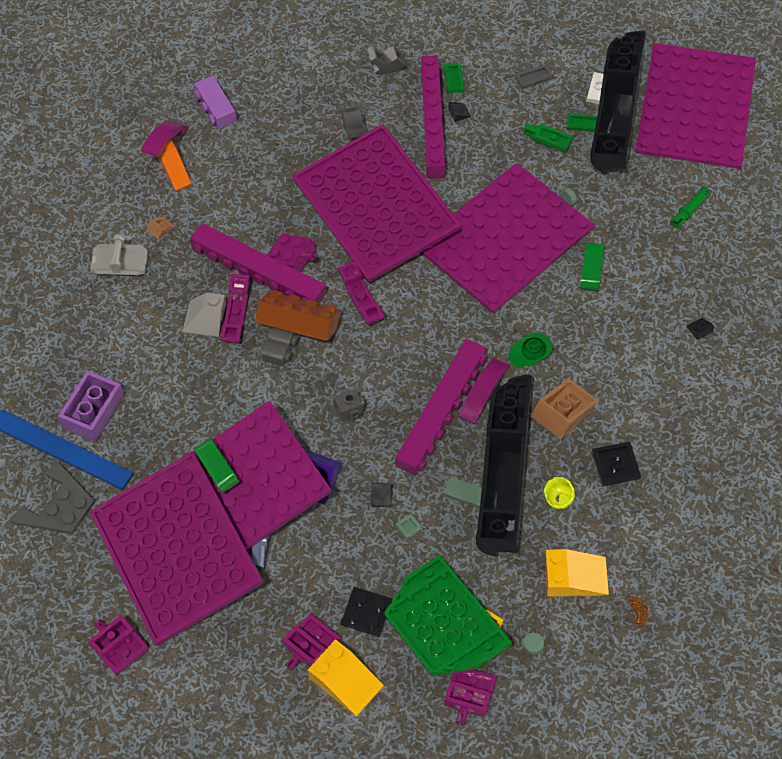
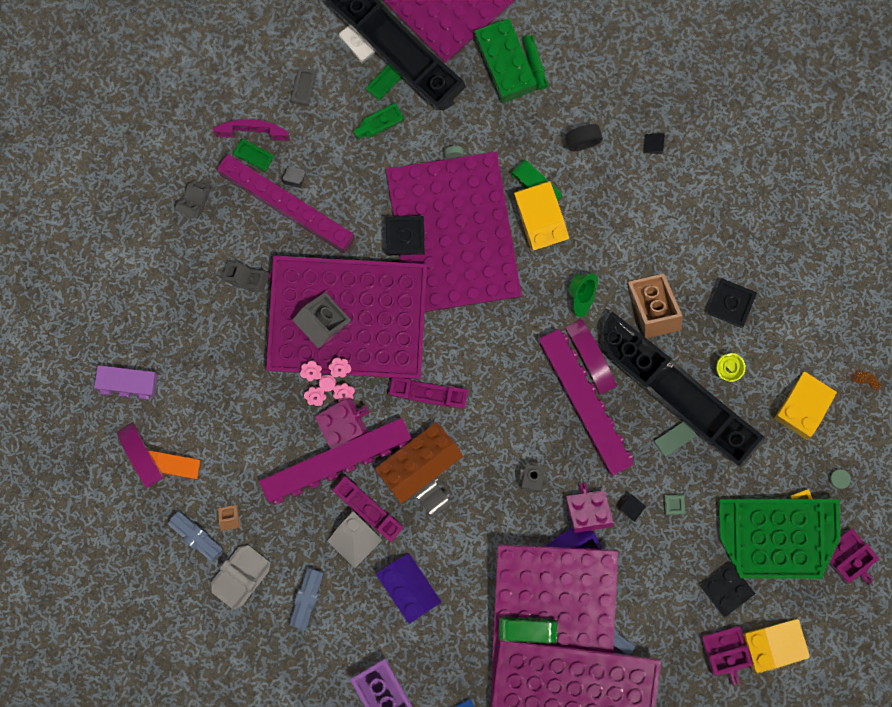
camera: 55 degrees left, 20 degrees up
(128, 212) = (195, 536): none -> sand blue piece
(132, 312) = (306, 599): none -> sand blue piece
(191, 374) = (408, 588): none -> dark purple slope
(314, 220) = (327, 382): none -> bright pink plant
(352, 459) = (589, 510): none -> magenta plate
(358, 180) = (321, 320): none -> dark grey slope
(461, 50) = (250, 125): none -> magenta slope
(472, 200) = (405, 235): none -> black plate
(567, 279) = (541, 216): none -> yellow slope
(658, 271) = (583, 137): none -> black tyre
(671, 185) = (505, 60): none -> green brick

